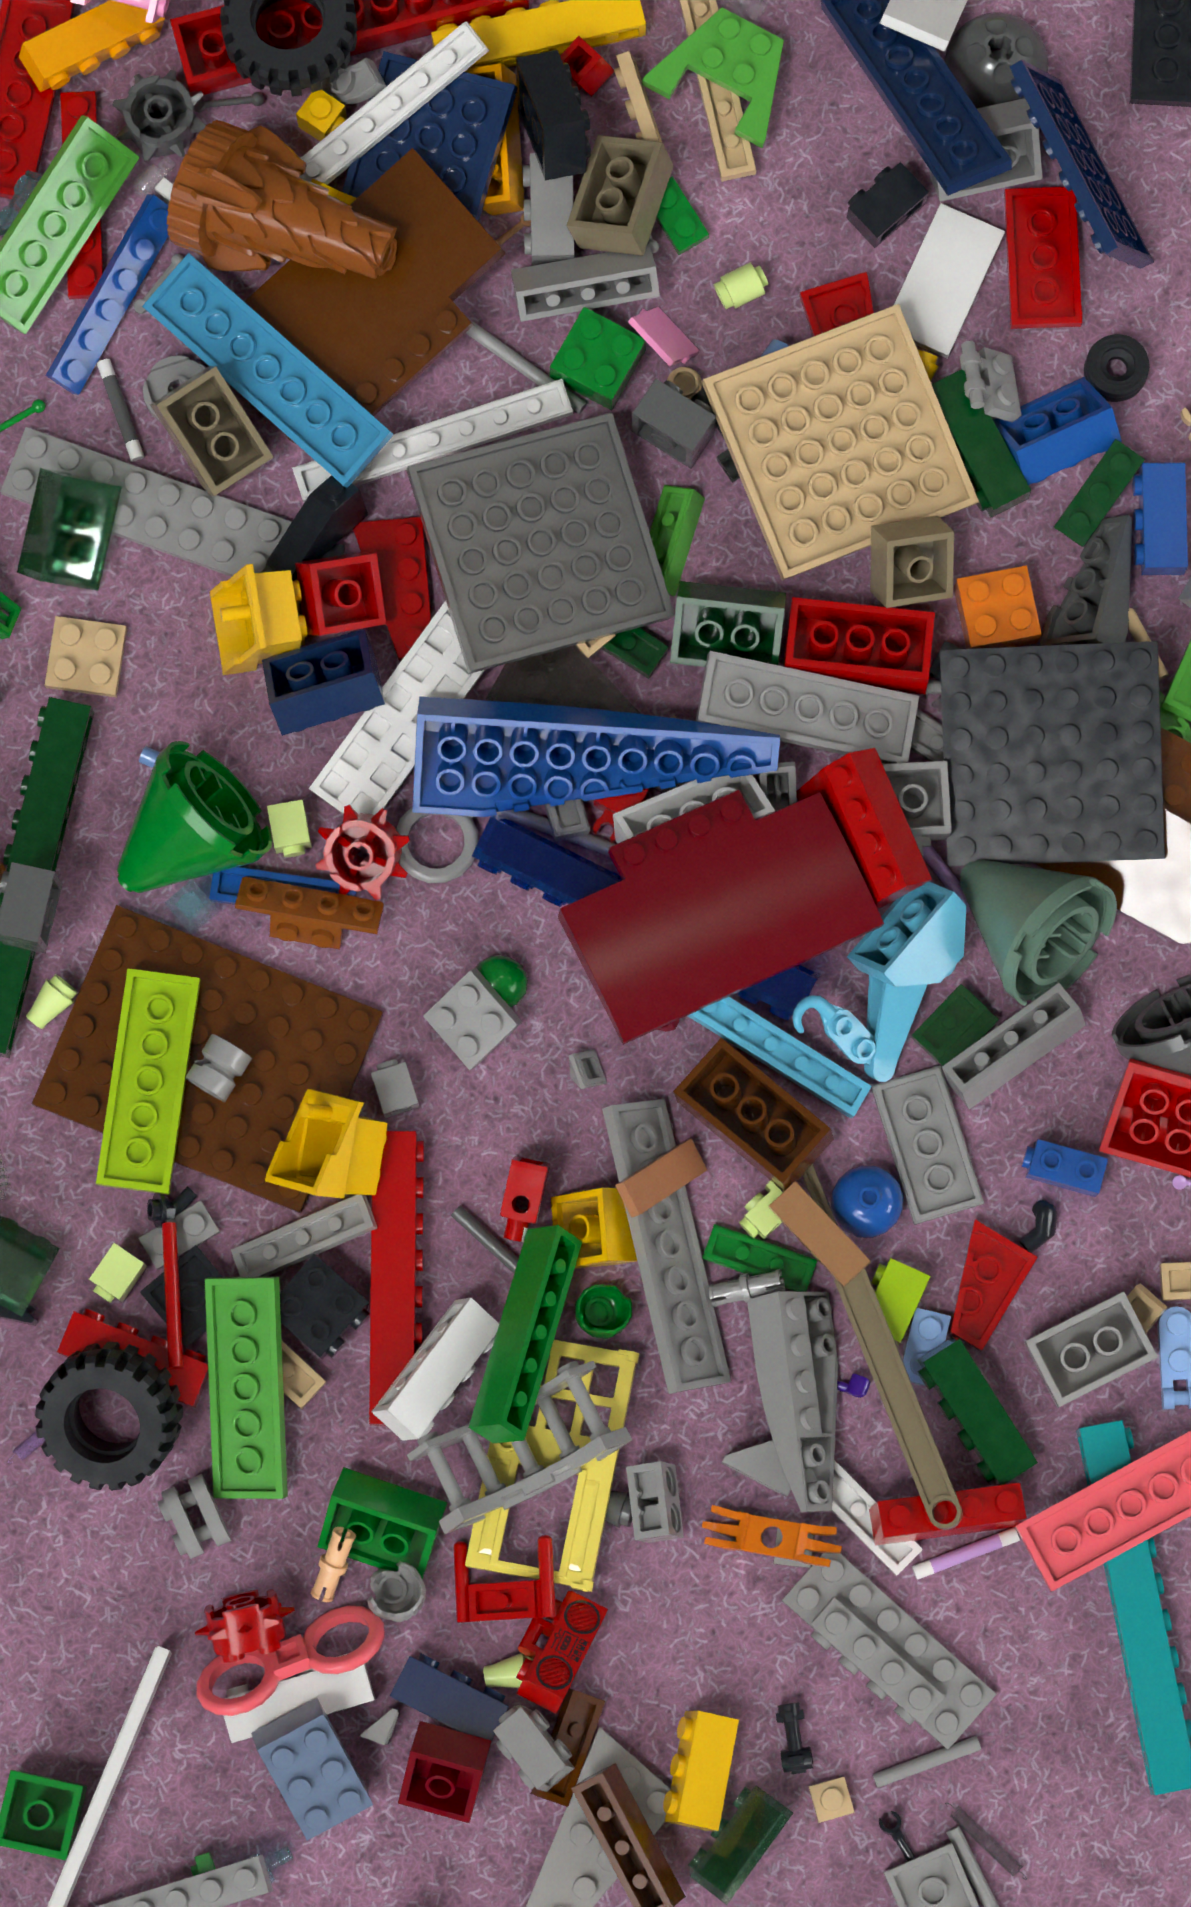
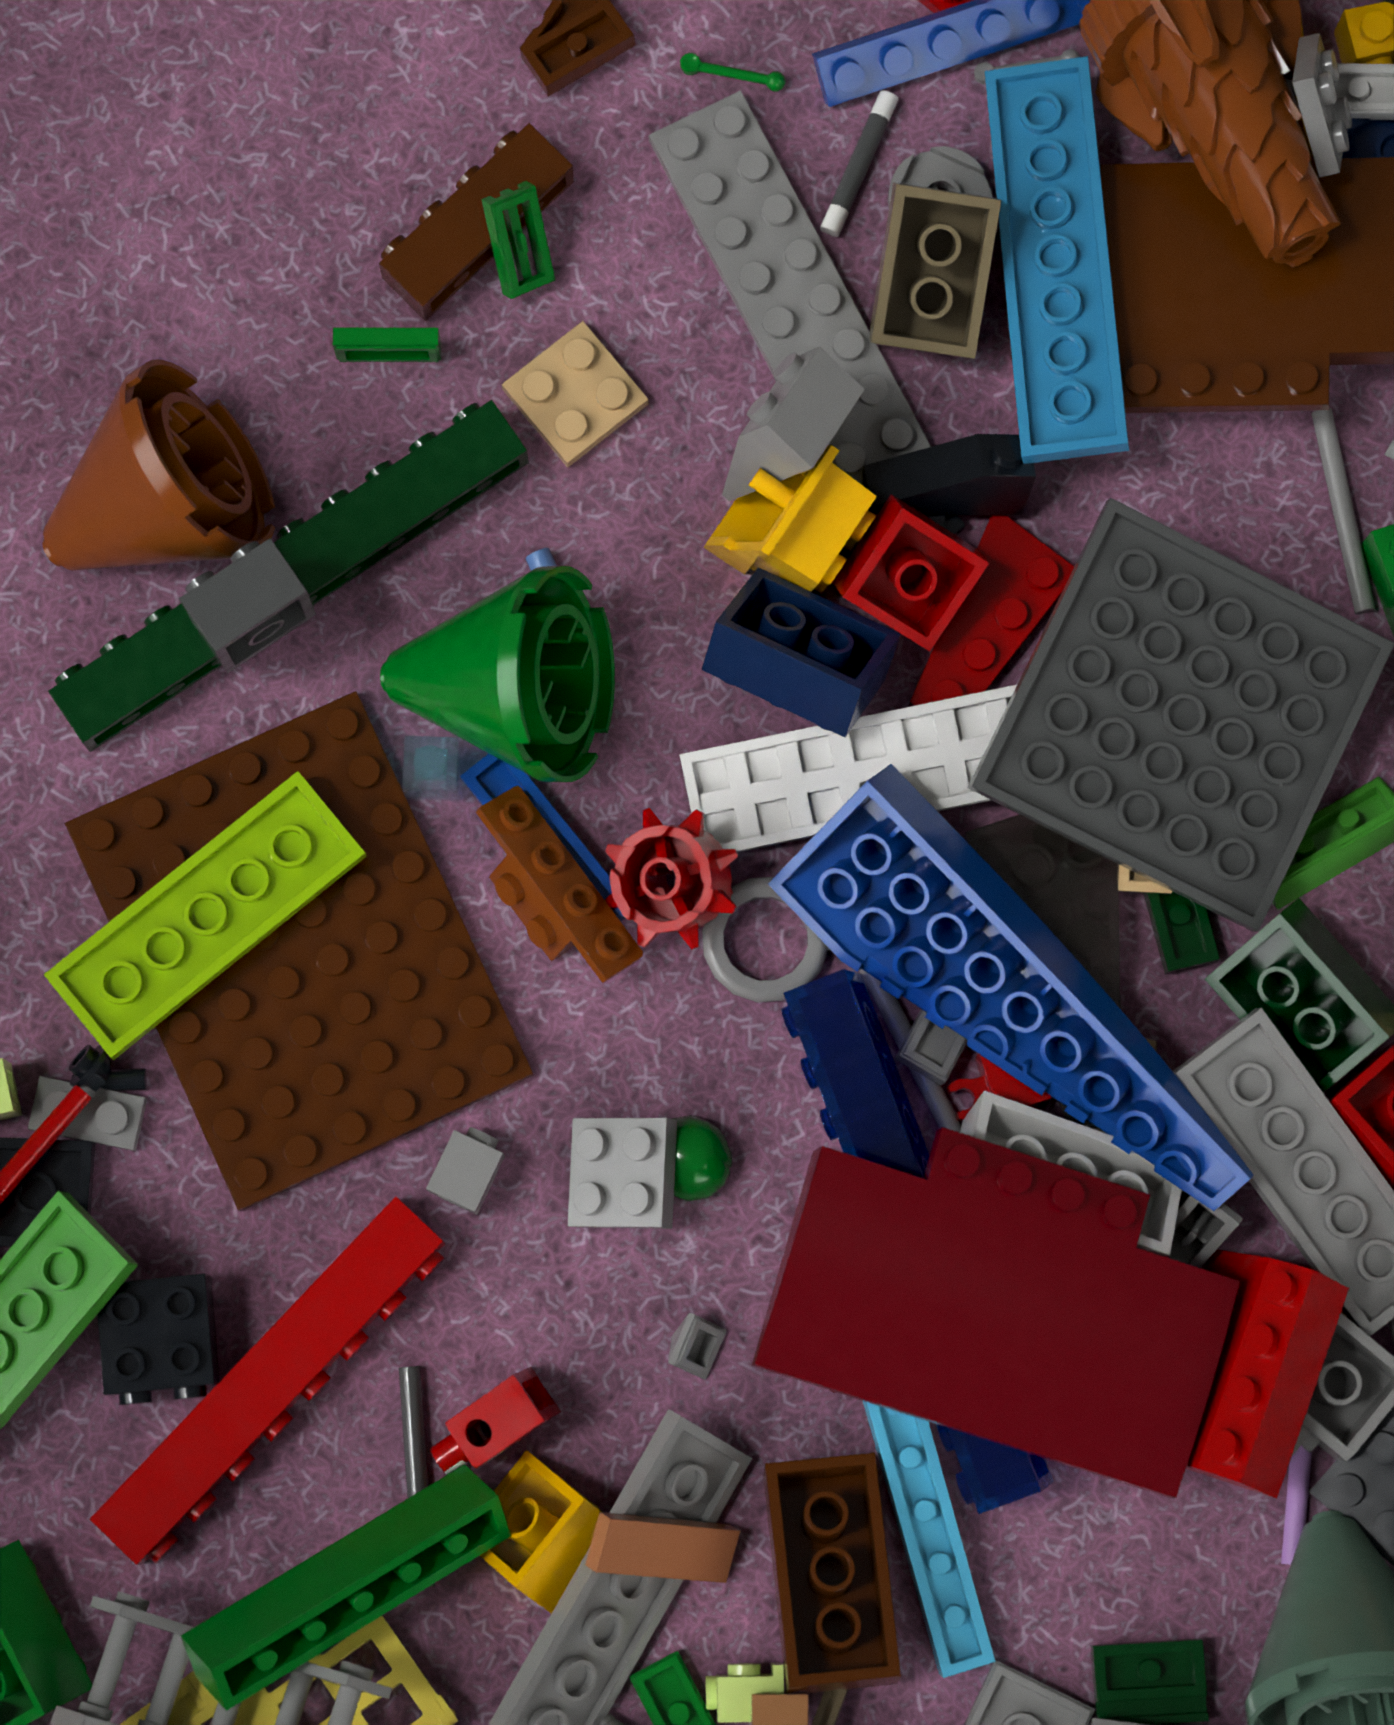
camera: 40 degrees right, 0 degrees up
(51, 1001) = (193, 731): yellowish green cone -> none
(69, 529) = (681, 239): clear green slope -> none
(215, 570) = (792, 420): none -> light grey slope
(218, 1068) = (292, 971): light grey wheel -> none
(289, 828) = (618, 778): yellowish green brick -> none
(299, 1379) = (65, 1392): tan plate -> none
(305, 1237) = (213, 1245): light grey plate -> none
(330, 1149) = (325, 1176): yellow piece -> none
(331, 176) = (1322, 112): none -> light grey plate
(437, 1369) = (216, 1530): white brick -> none
(453, 434) = (1198, 512): white tile -> none
(603, 1311) = (463, 1634): green hair -> none
(912, 949) = (1178, 1555): medium azure slope -> none

